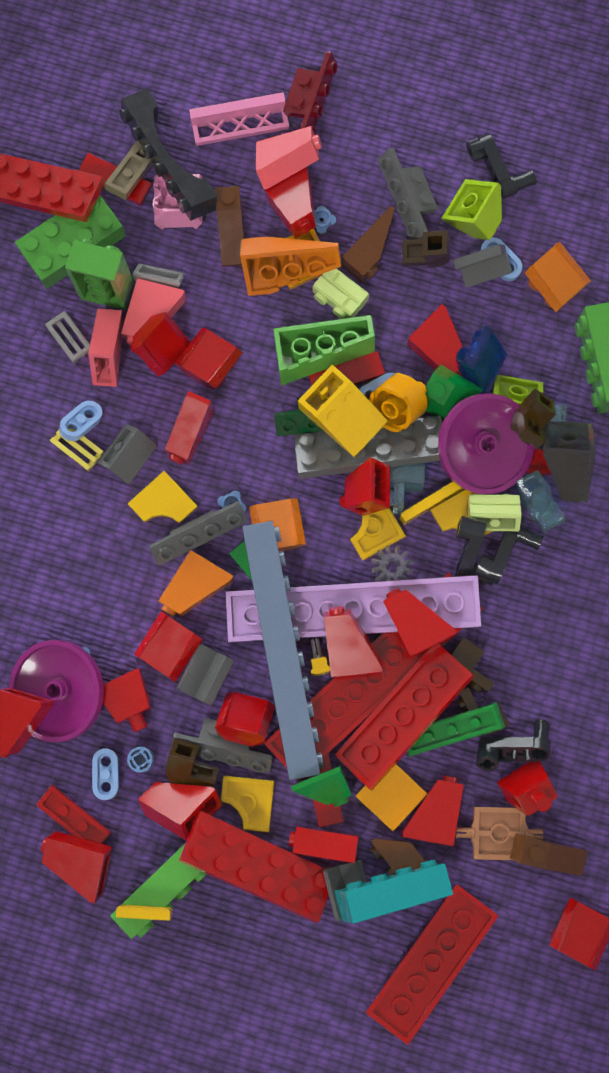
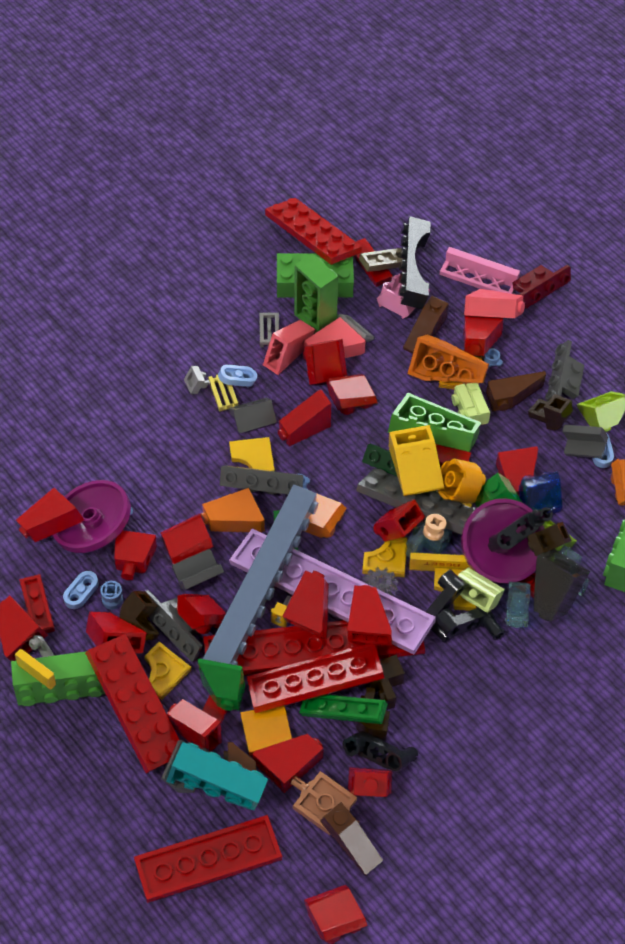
camera: 30 degrees right, 25 degrees down
(39, 454) = (195, 380): none -> light grey tile
(119, 863) = (39, 643): none -> light grey arm
(407, 479) = (434, 527): none -> light nougat wheel
(496, 444) = (510, 537): none -> black beam

